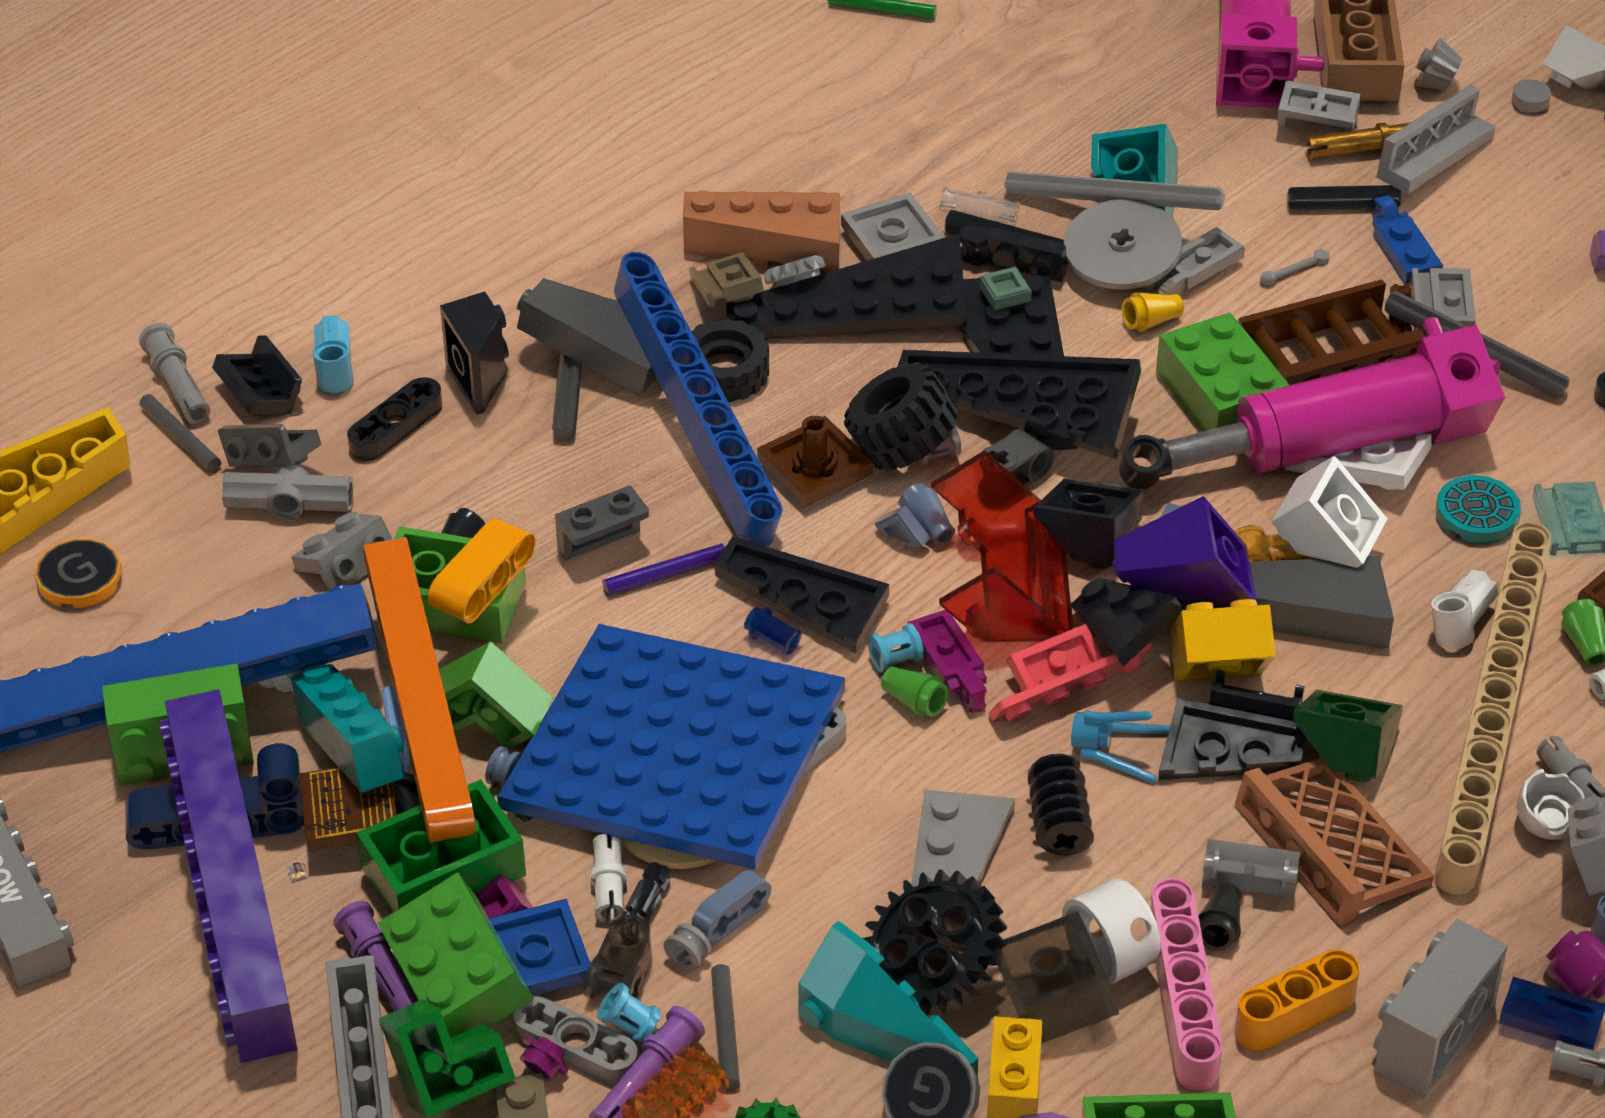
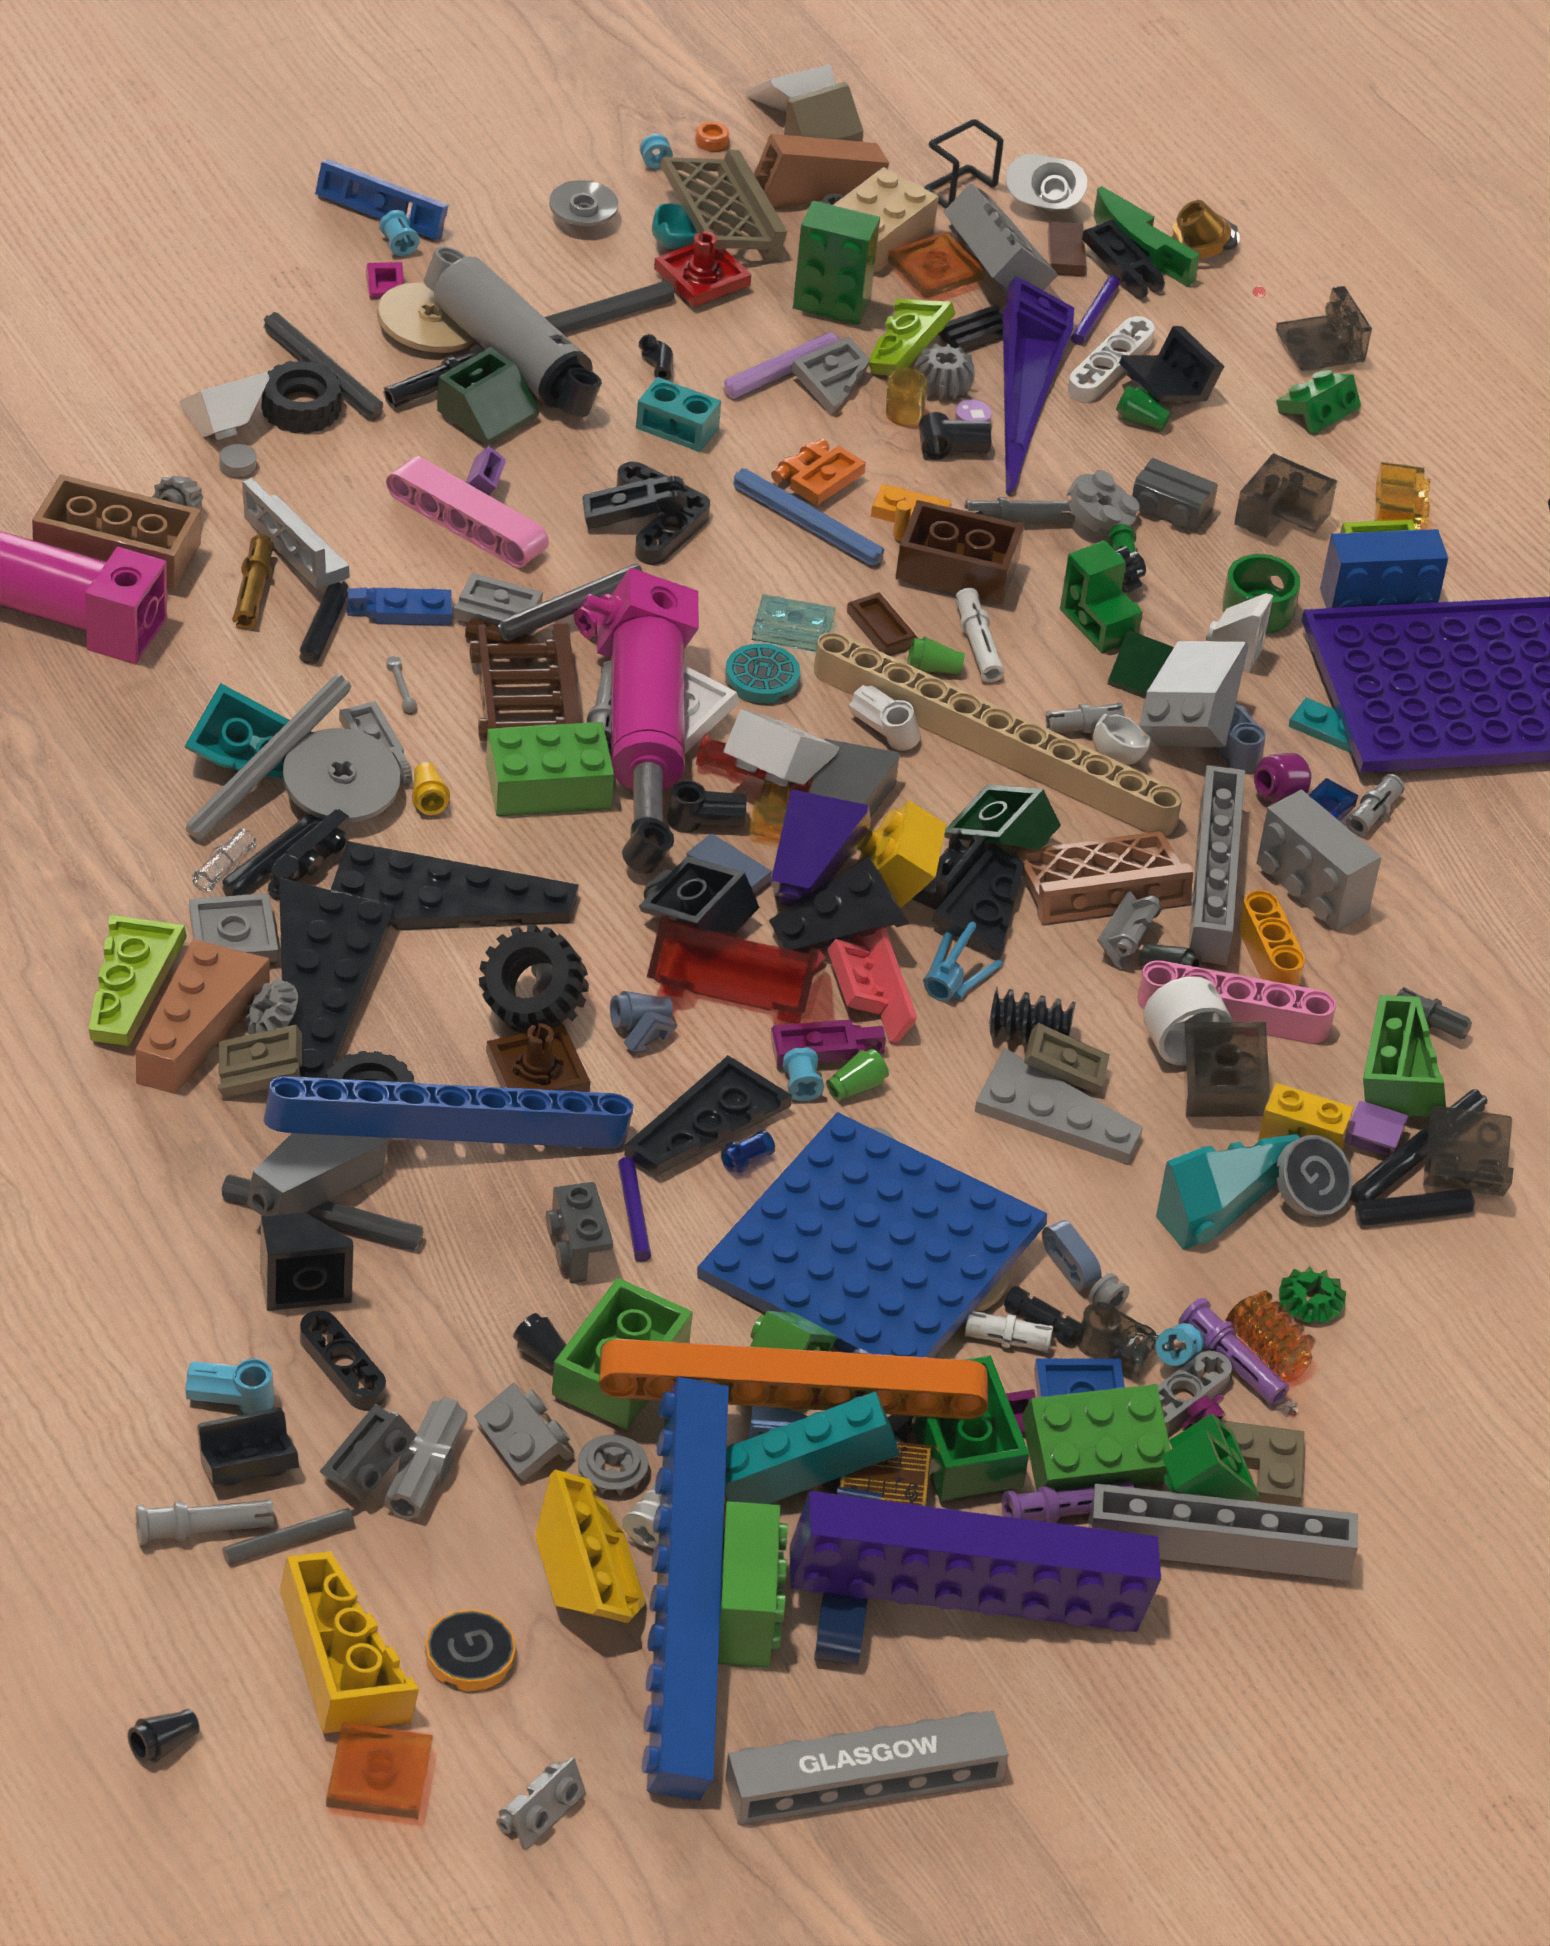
camera: 80 degrees left, 0 degrees up
(190, 602) = (586, 1552): none -> yellow wedge
(481, 570) = (658, 1301): light orange beam -> none
(725, 1024) = (1183, 1293): dark grey bar -> none
(851, 181) = (132, 972): none -> lime wing
(935, 913) = (1143, 1105): black gear -> none
(1005, 288) = (370, 869): sand green tile -> none
(1013, 846) = (1066, 1058): none -> dark tan plate
(1023, 456) = (599, 937): dark grey piece -> none
(1053, 396) = (537, 879): black wing -> none
(1236, 496) = (694, 806): none -> black piece
(1319, 105) = (204, 592): light grey hinge -> none
(1384, 917) = (1216, 864): none -> light grey brick
(1561, 250) = (467, 512): none -> bright pink beam

